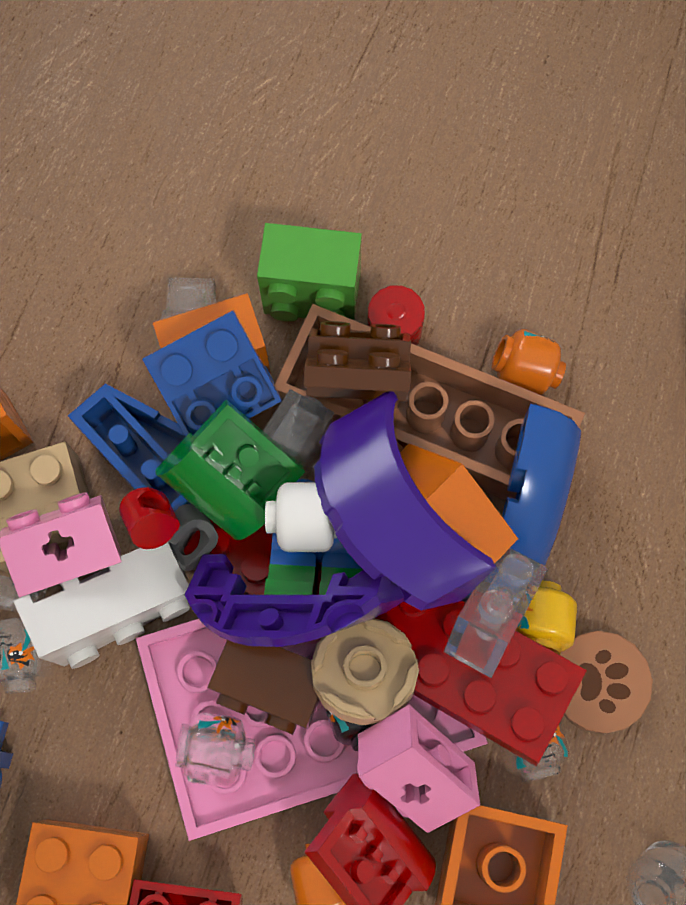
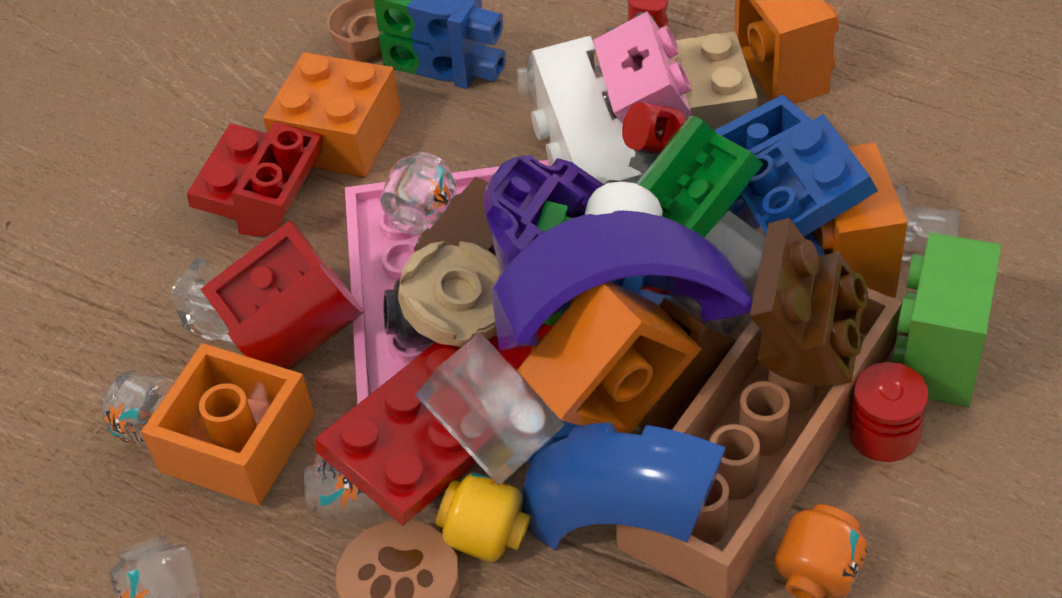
camera: 105 degrees right, 25 degrees down
(417, 769) = (342, 328): bright pink brick -> none

